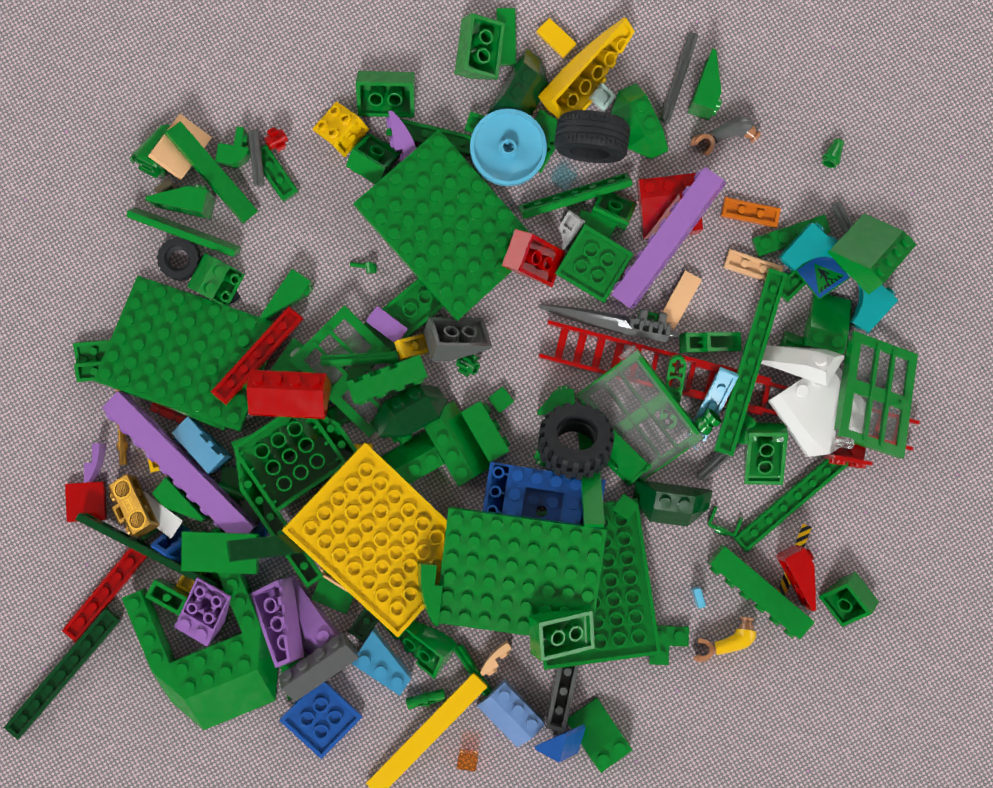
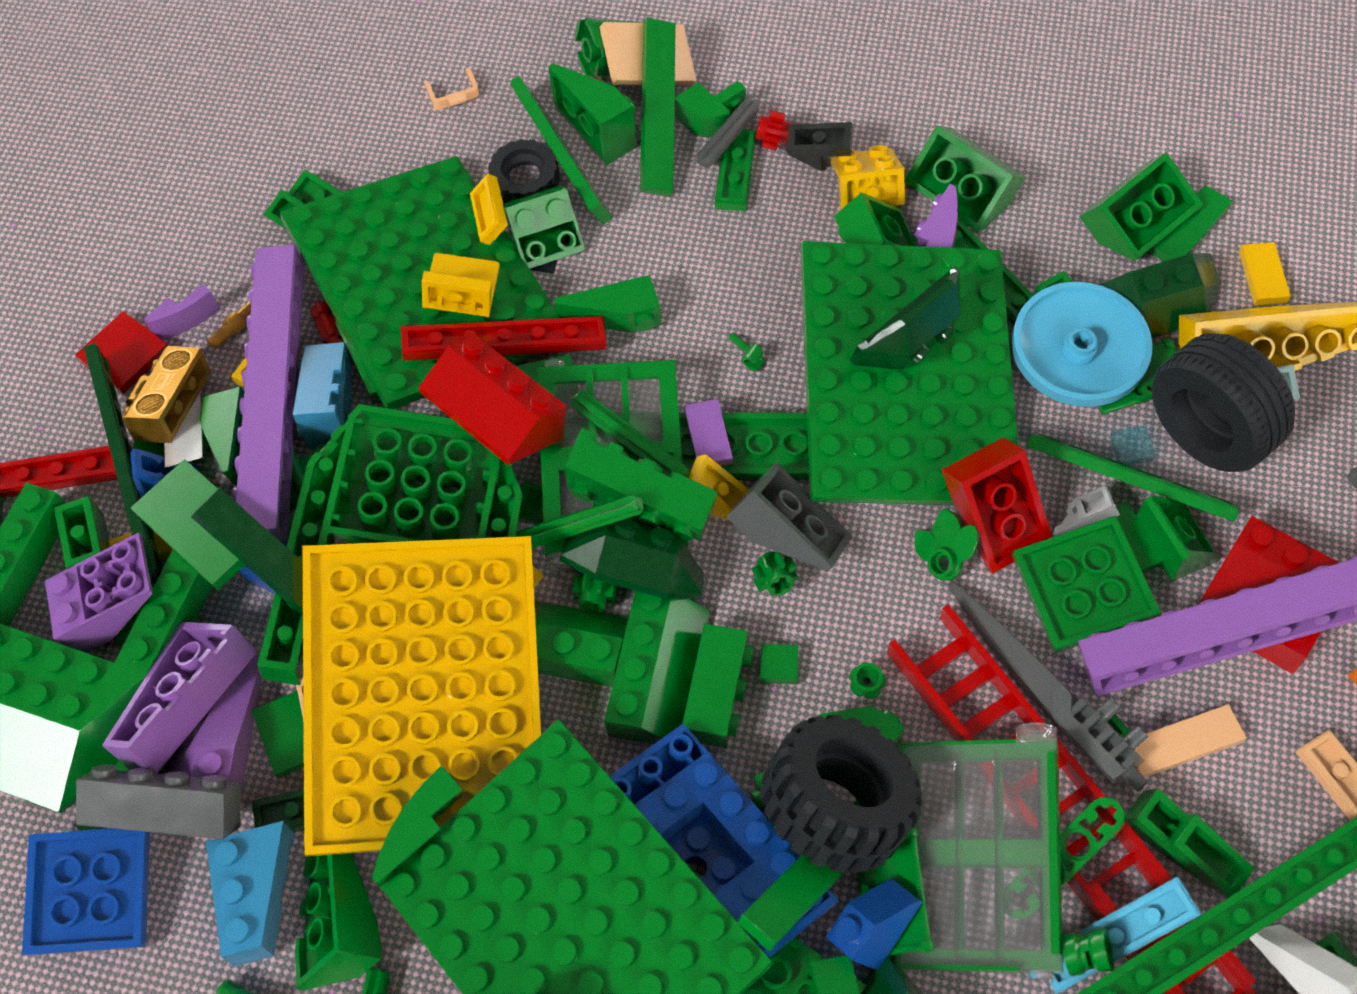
camera: 45 degrees right, 25 degrees down
(103, 242) = (456, 97): none -> light nougat piece
(187, 296) = (488, 209): none -> yellow tile
(213, 346) = (460, 284): none -> yellow bracket
(305, 130) = (819, 140): none -> pearl dark grey slope
(375, 415) = (584, 520): none -> green axle
(438, 205) = (914, 328): none -> dark green wedge
(525, 292) = (947, 540): none -> green plate
(540, 383) = (867, 671): none -> green plate
(623, 474) = (874, 923): none -> blue slope
(645, 129) = (1312, 461): green wedge -> none

